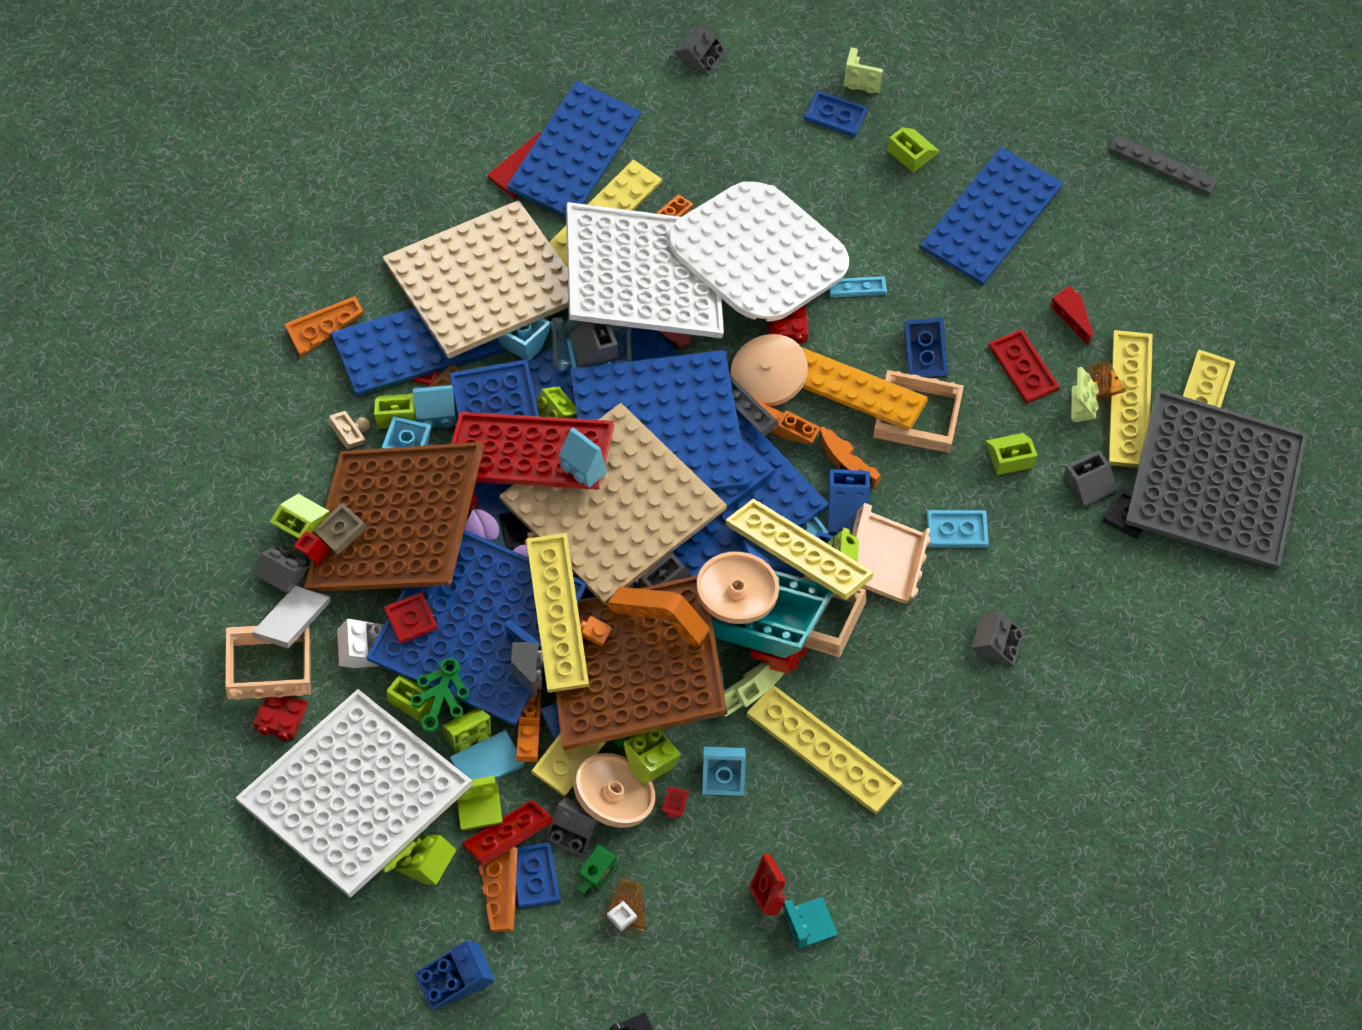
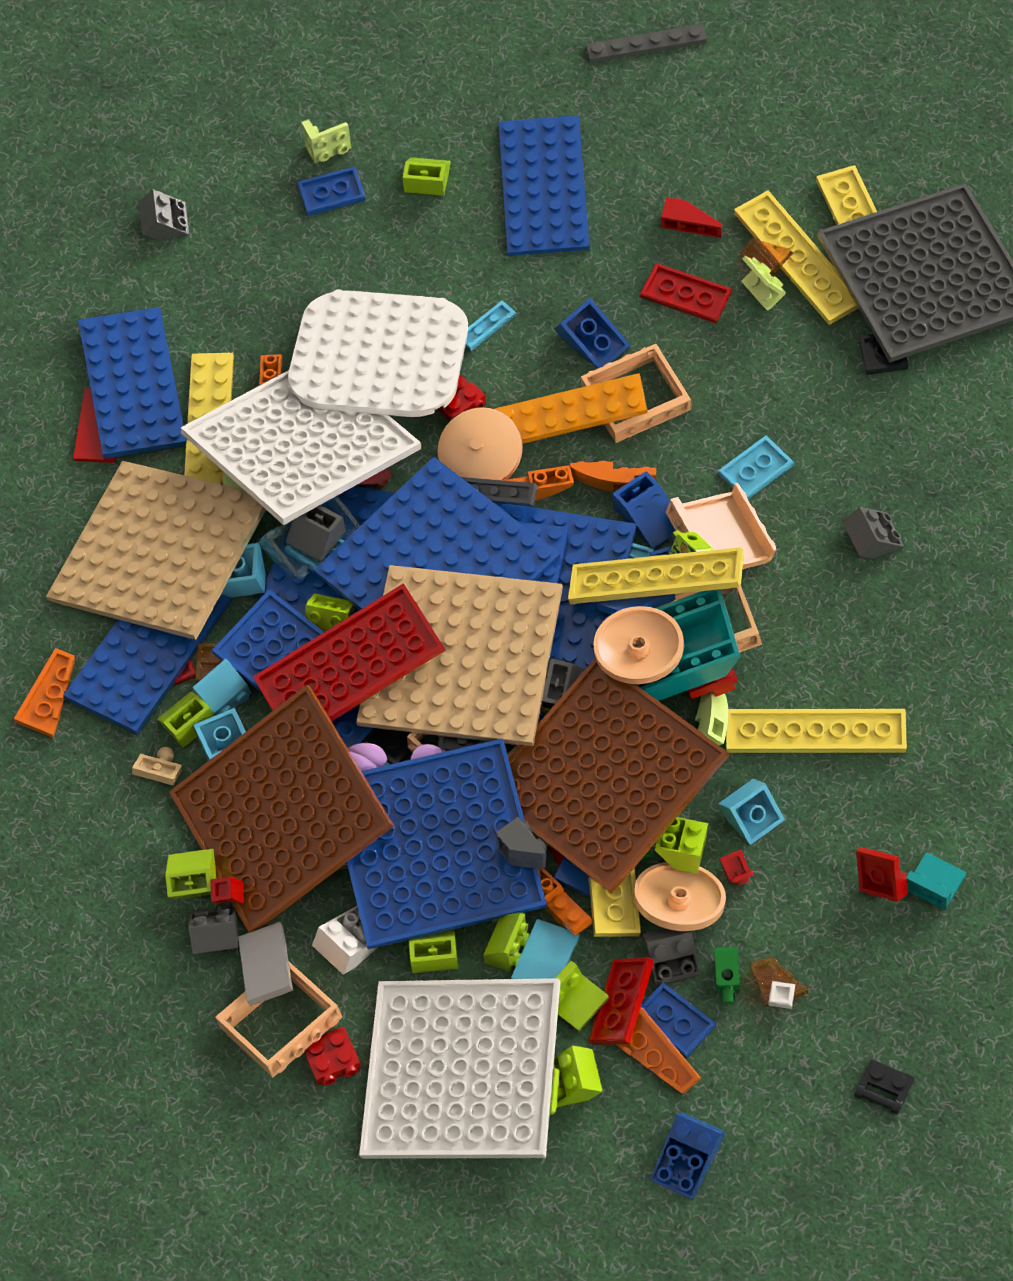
camera: 30 degrees left, 0 degrees up
(340, 528) = (239, 855): dark tan plate -> none
(410, 618) = (377, 883): red tile -> none
(440, 692) = (462, 925): green plant -> none
(519, 634) = (487, 824): blue tile -> none
(557, 613) = (502, 780): light yellow plate -> none
(582, 458) = (413, 632): medium azure slope -> none
(595, 630) = (545, 774): orange bracket -> none
(661, 605) = (590, 708): orange beam -> none
(1012, 453) = (744, 371): lime slope -> none
(1090, 478) = (828, 346): dark grey slope -> none

